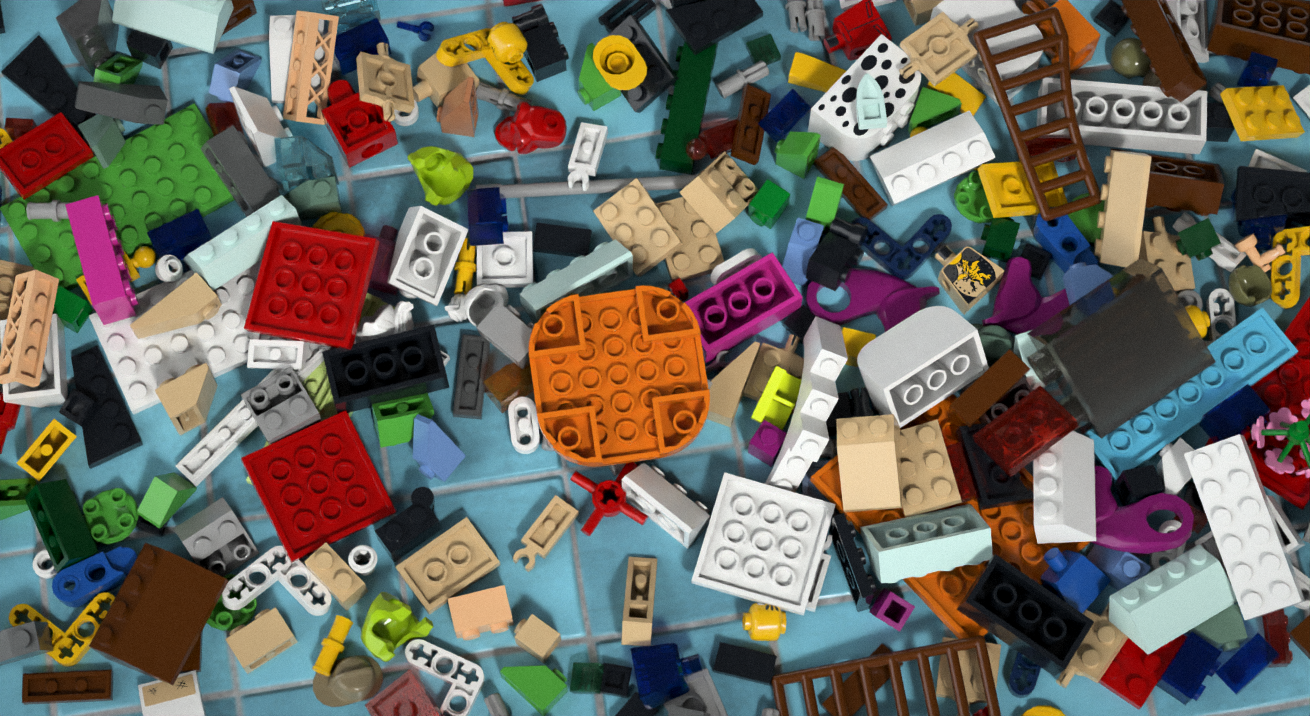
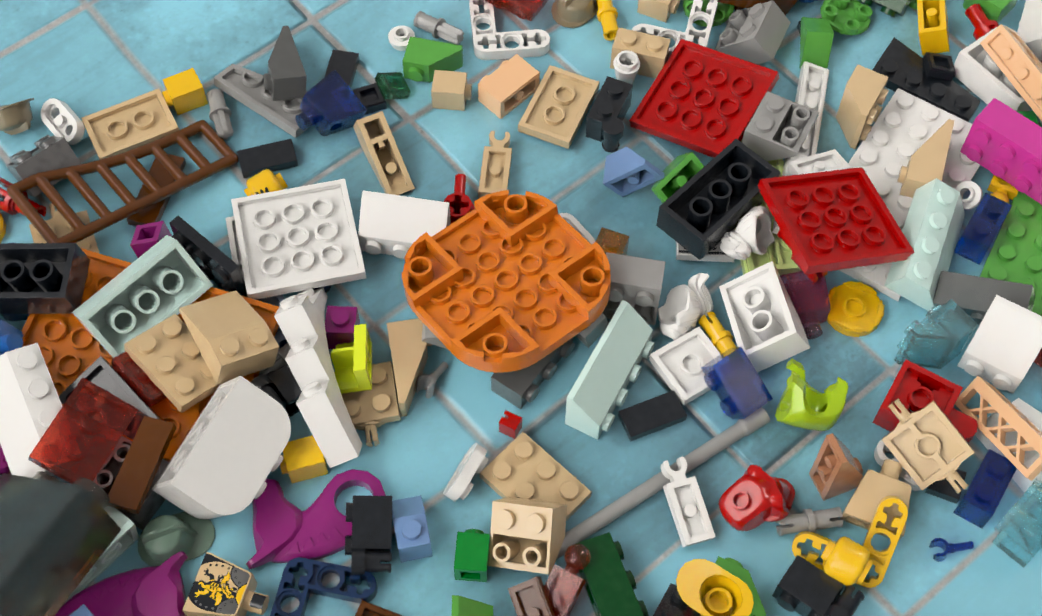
camera: 150 degrees right, 10 degrees down
(315, 198) = (891, 324): sand green slope -> none
(391, 625) = (574, 40): lime piece -> none
(471, 374) = (643, 245): dark grey tile -> none
(639, 226) = (587, 459): tan plate -> none
(744, 305) = (439, 431): dark pink brick -> none
(799, 322) = (372, 459): black tile -> none
(825, 202) = (412, 579): bright green slope -> none

